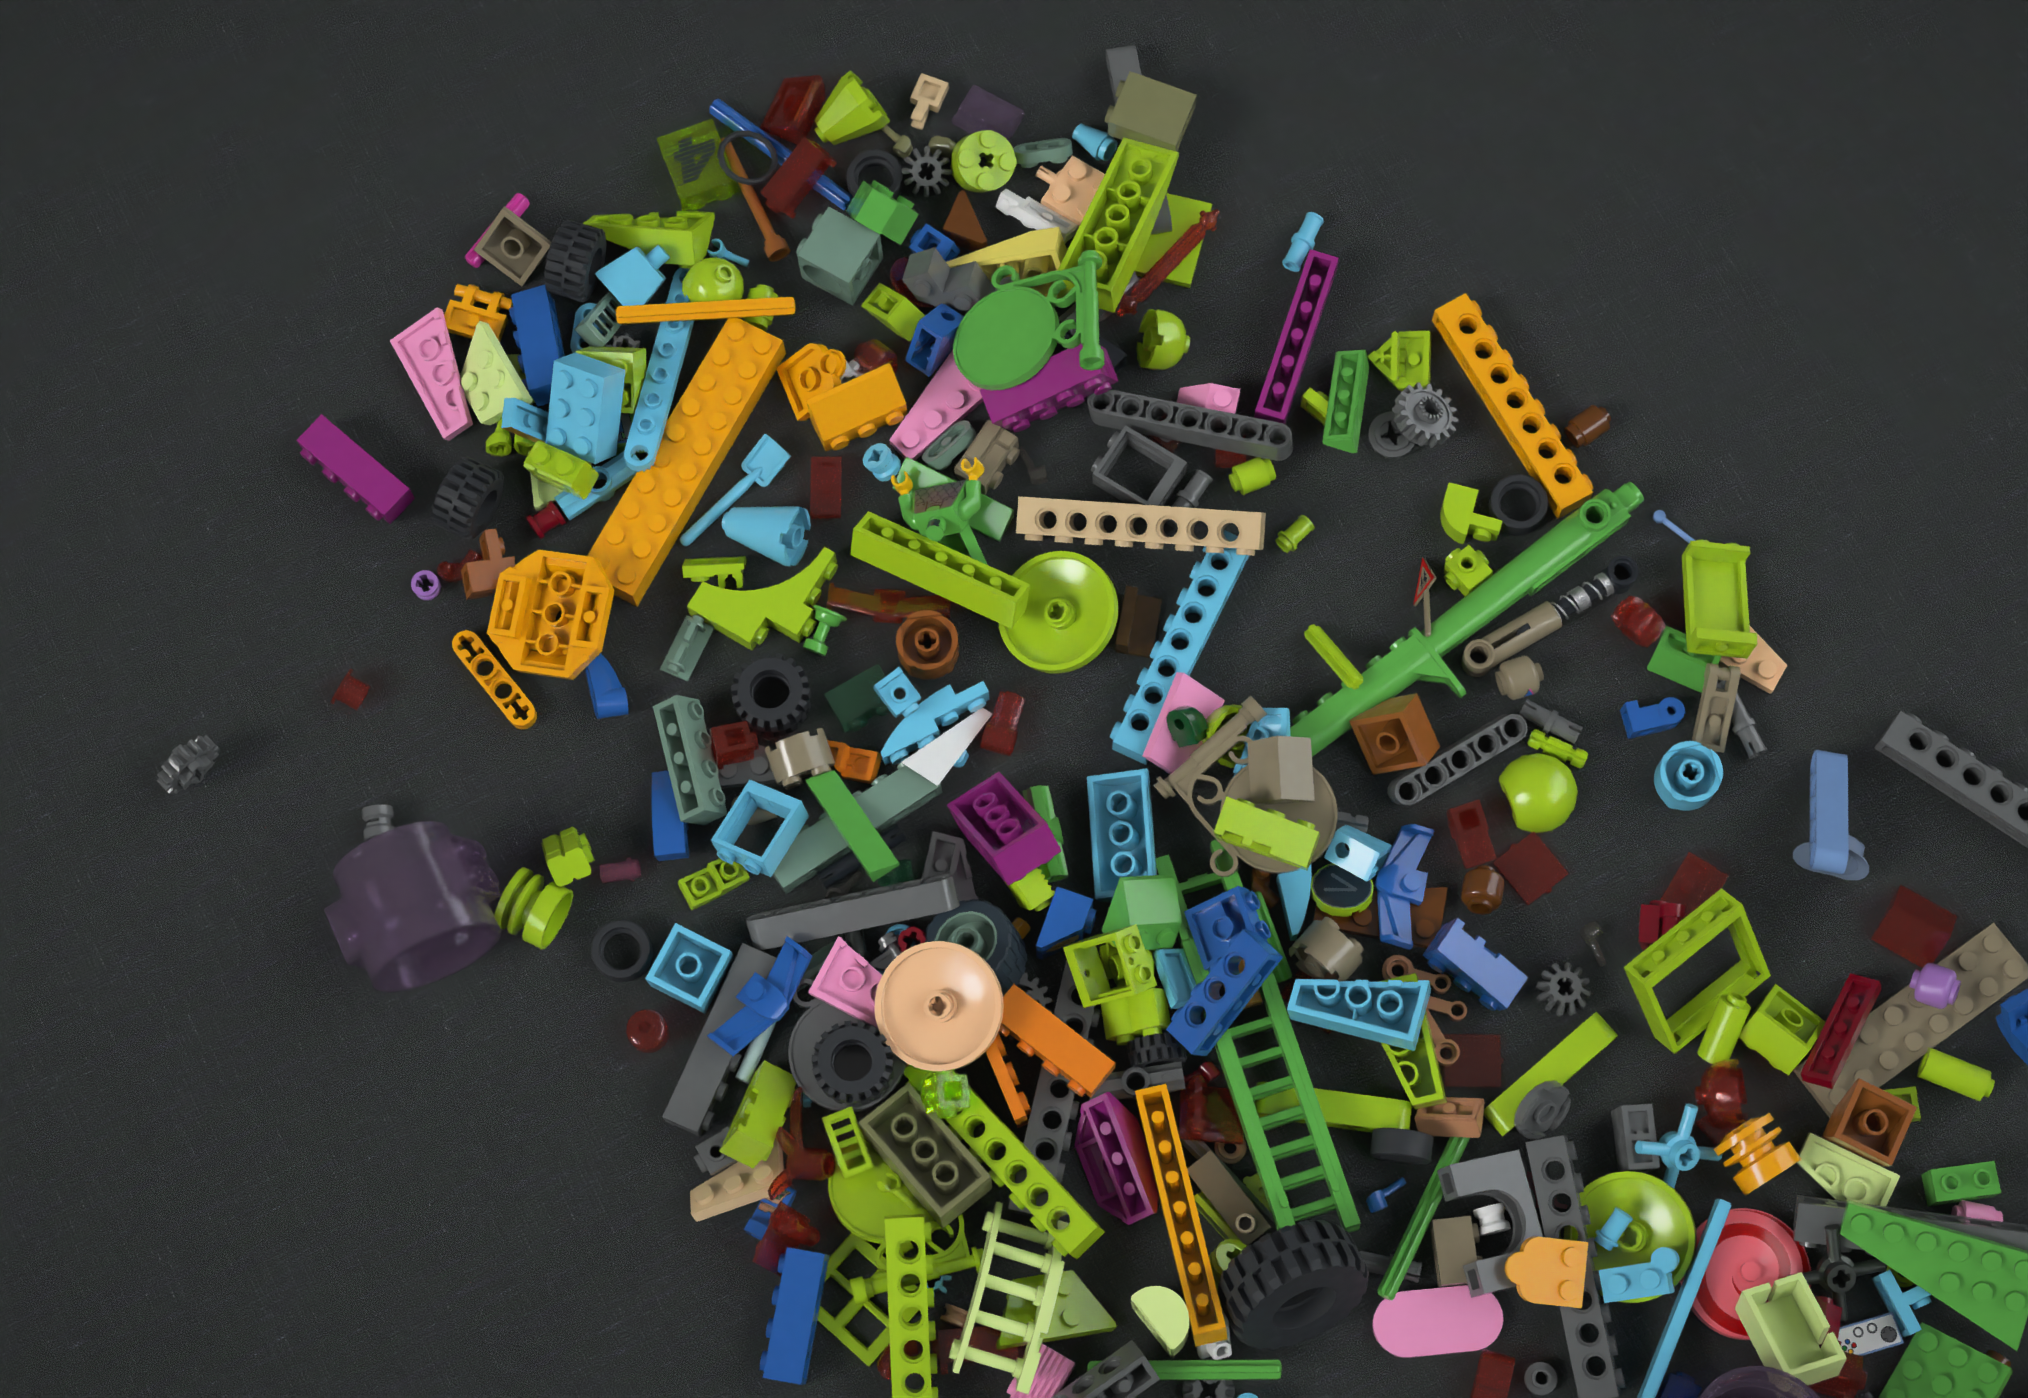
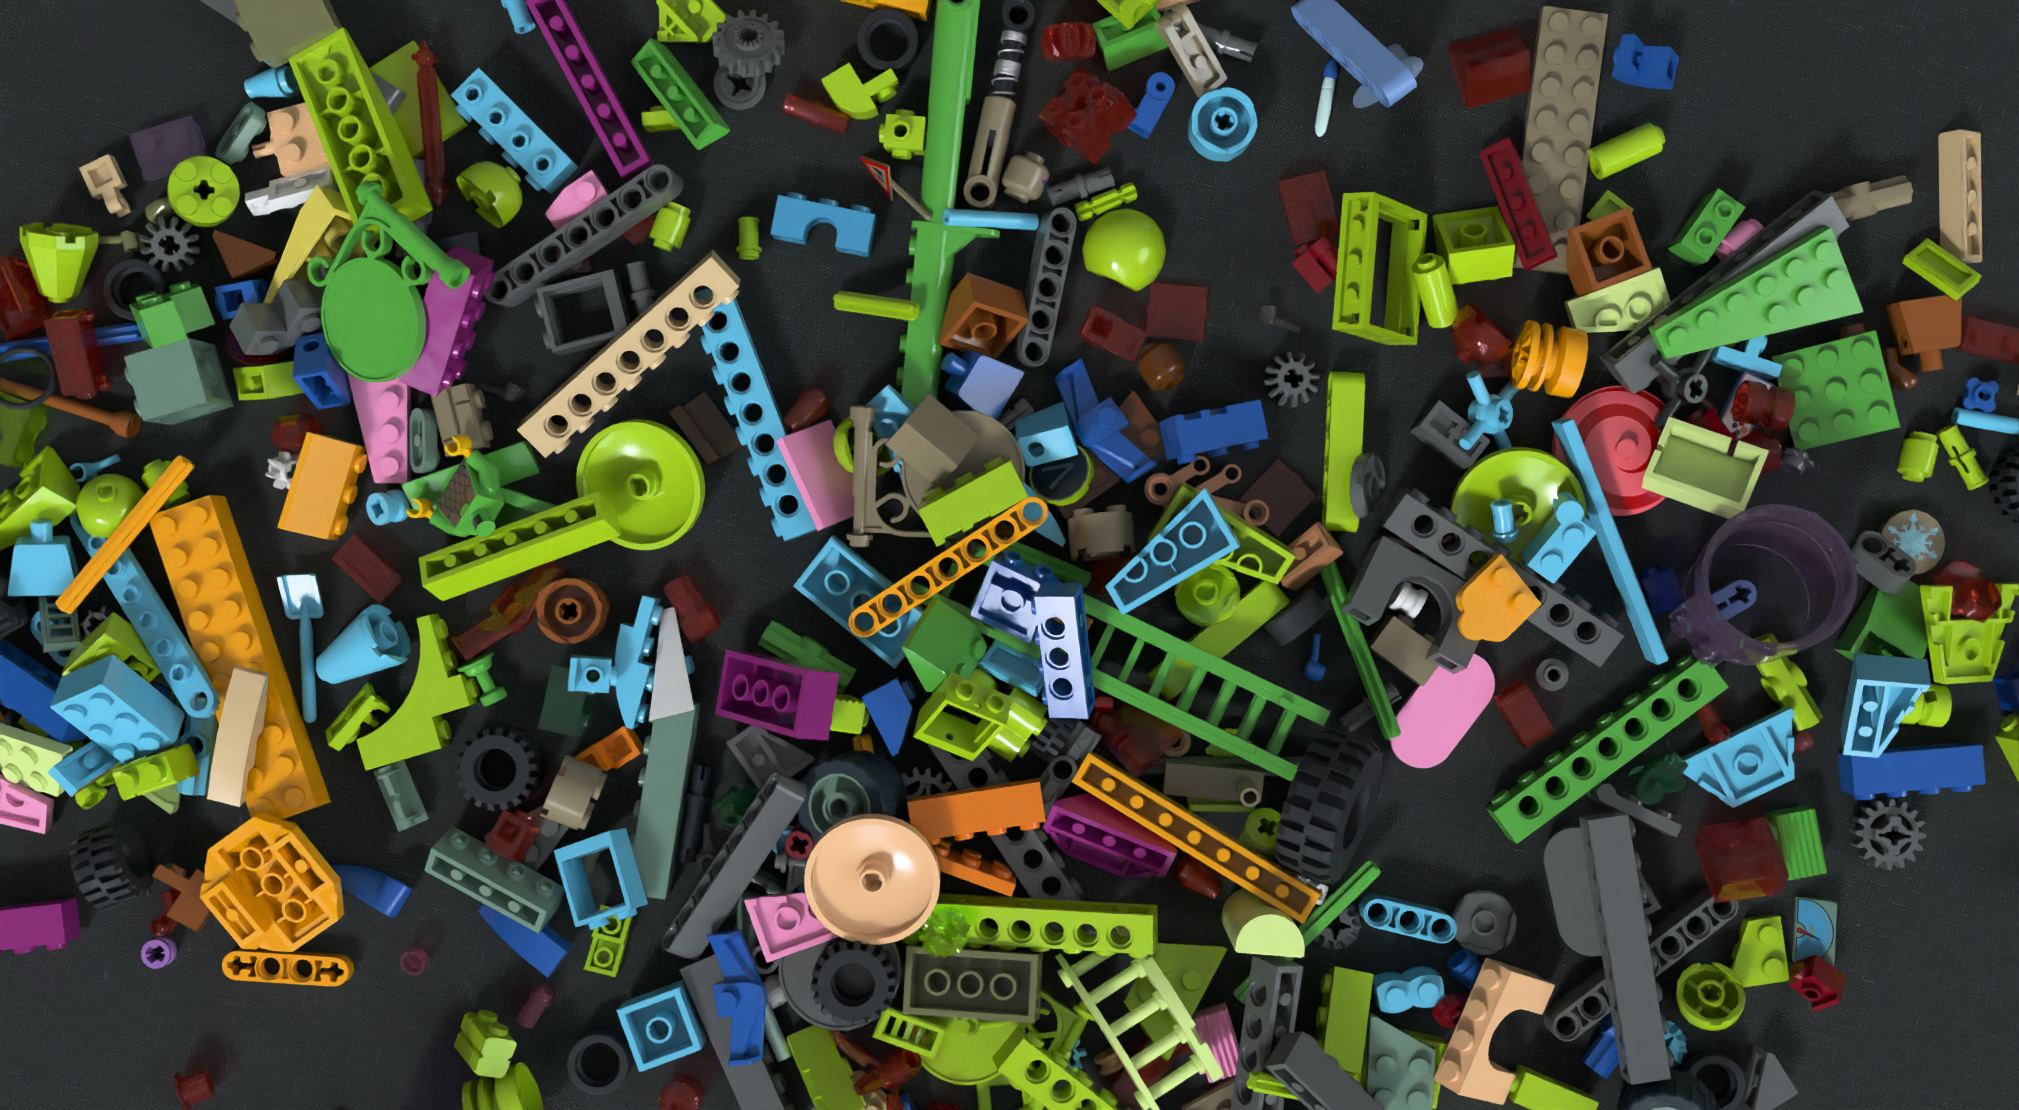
camera: 50 degrees left, 15 degrees up
(545, 520) = (190, 813): dark red bush -> none
(573, 762) = (414, 963): none -> clear pink hinge
(638, 498) = (237, 735): none -> tan slope
(783, 1029) = (774, 991): none -> white plate
(810, 374) = (259, 496): light orange plate -> none
(852, 824) = (664, 805): bright green slope -> none
(1148, 1255) = (1197, 877): none -> clear red cone
(1187, 725) = (827, 474): dark green piece -> none
(1215, 320) = (510, 127): none -> medium azure brick
(1216, 676) = (806, 410): none -> clear red cone
(1216, 873) = (932, 571): none -> light orange beam
(1342, 552) = (797, 216): none -> dark azure arch
(1351, 773) = (980, 381): none -> torso
(1357, 1070) = (1208, 595): none -> lime tile
(1422, 501) = (816, 113): none -> clear red pin
(1467, 679) = (990, 219): none -> medium azure piece
(1602, 677) = (1087, 114): none -> clear red brick
(1797, 821) = (1330, 74): none -> light aqua piece
(1879, 1342) = (1757, 404): none -> clear red wheel
(1935, 985) = (1553, 99): medium lavender head -> none

